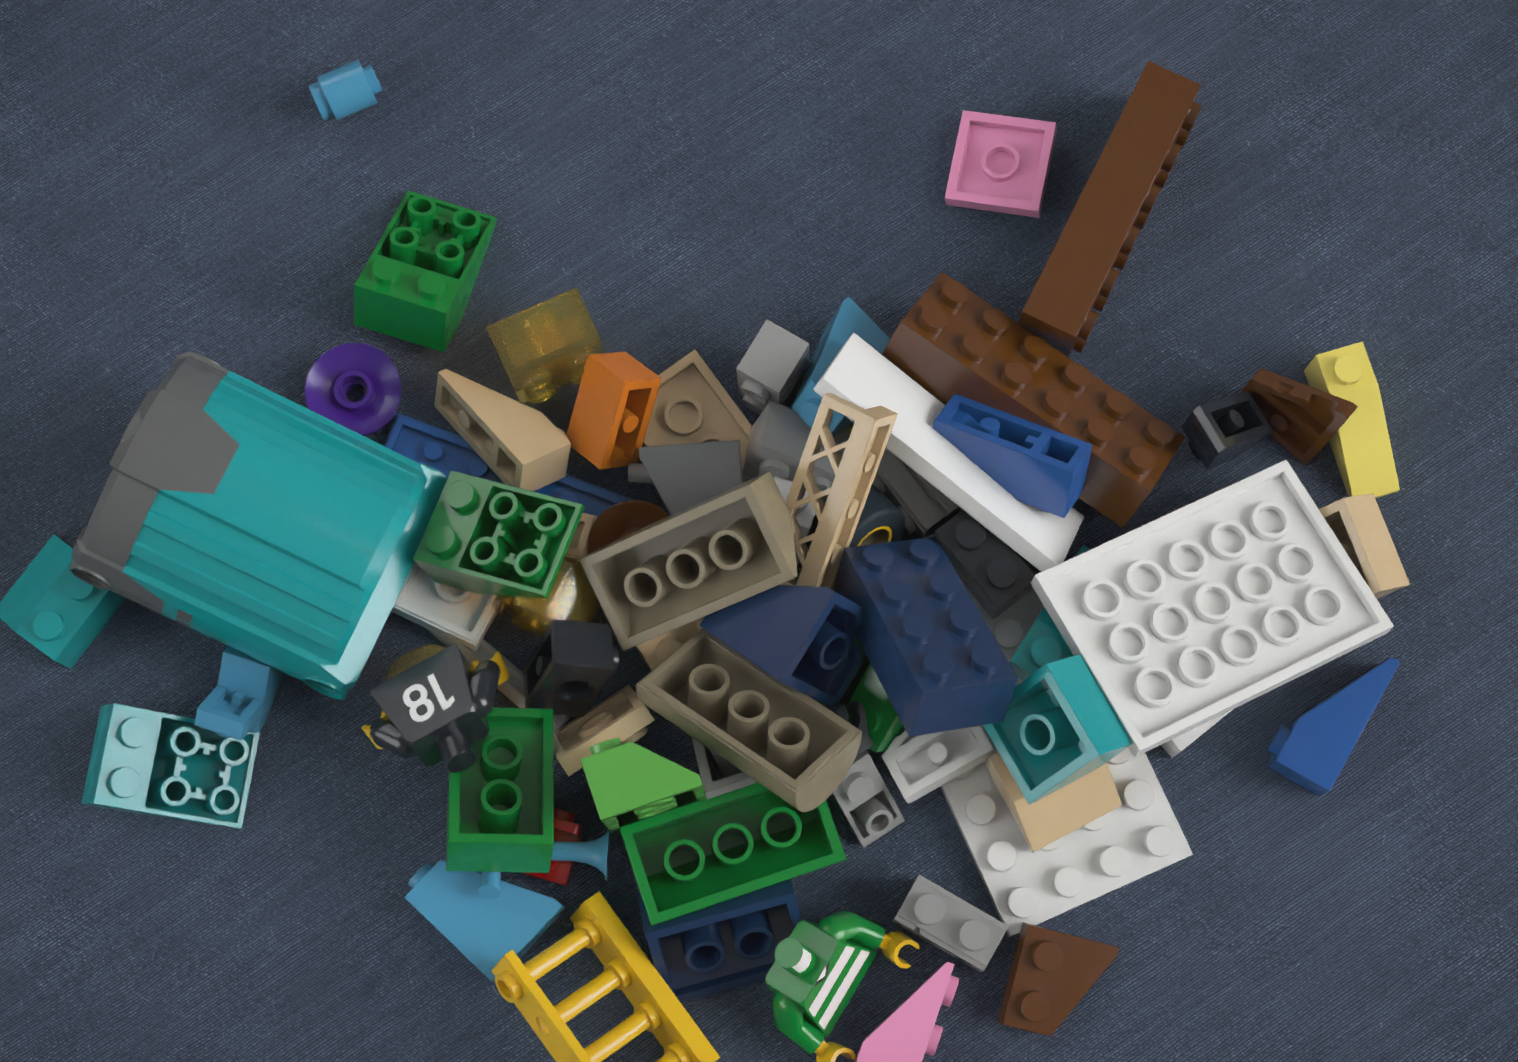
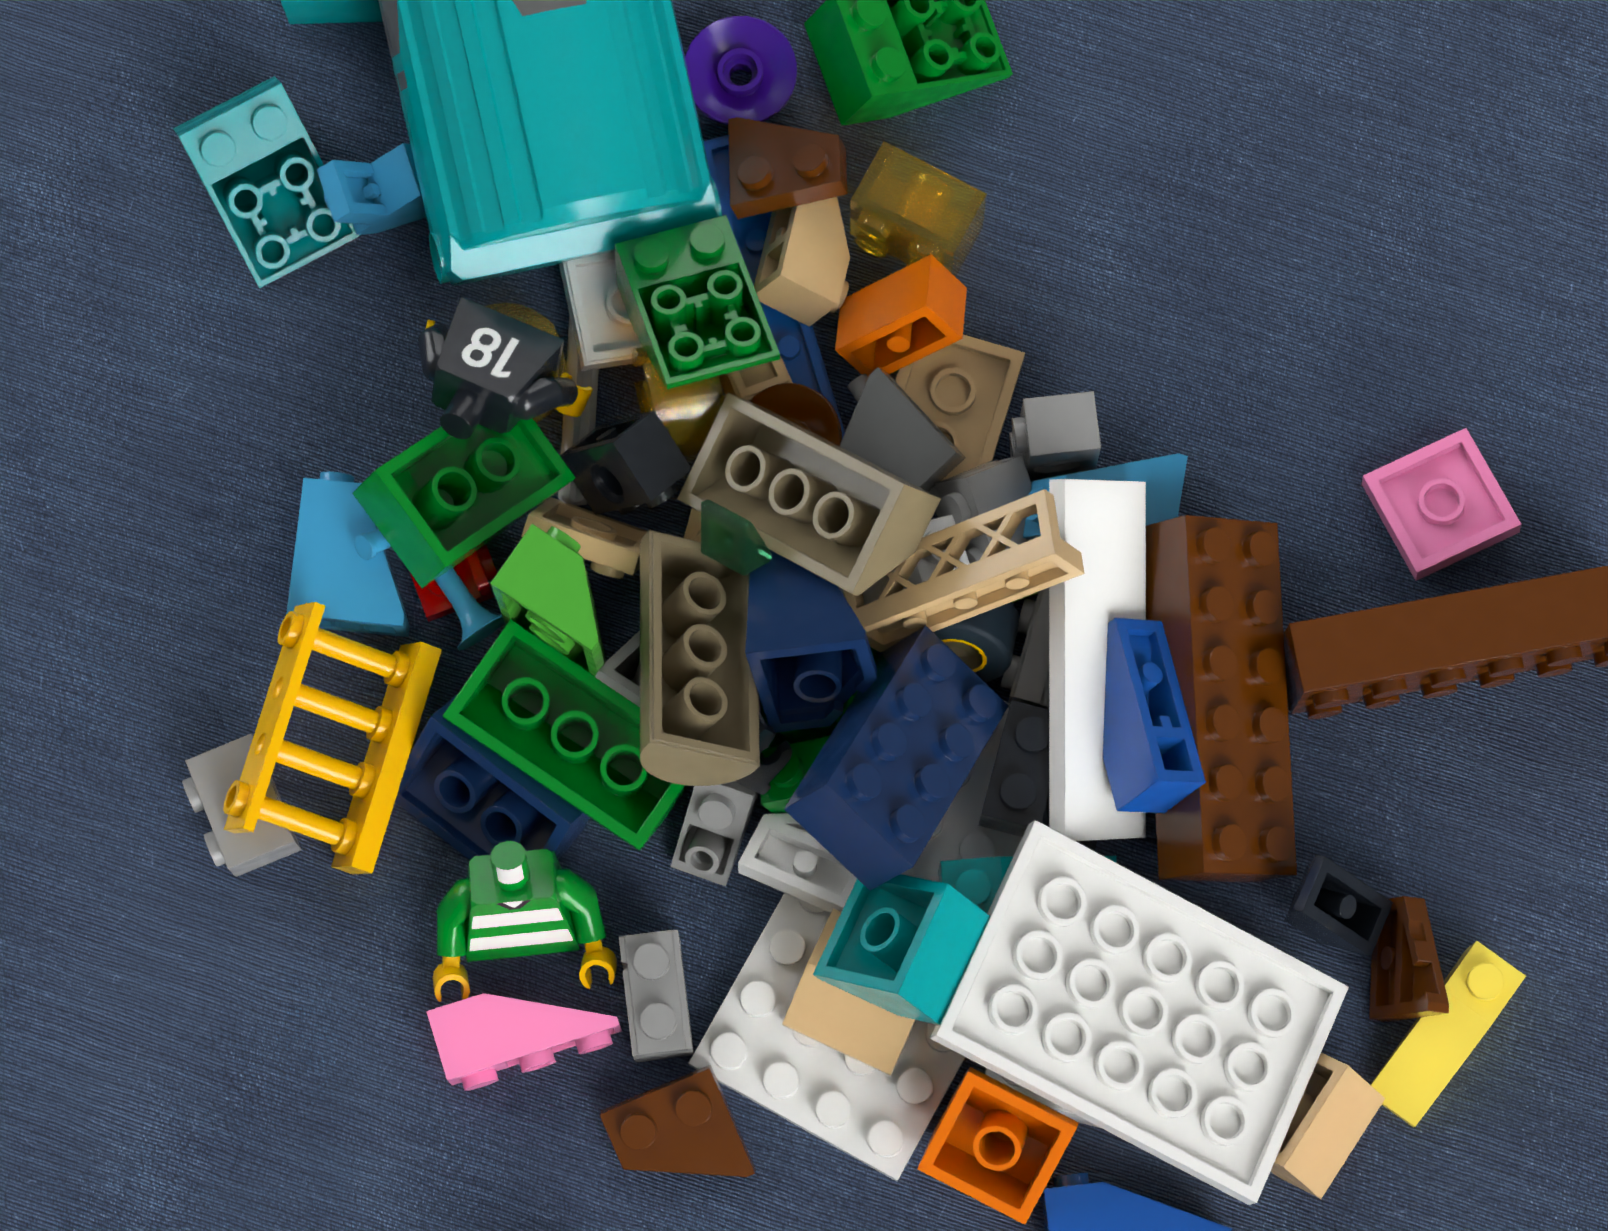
camera: 50 degrees right, 0 degrees up
(445, 409) = (782, 166): none -> reddish brown wing
(687, 633) = (731, 539): none -> clear green slope
(1225, 770) = (997, 1145): none -> orange slope

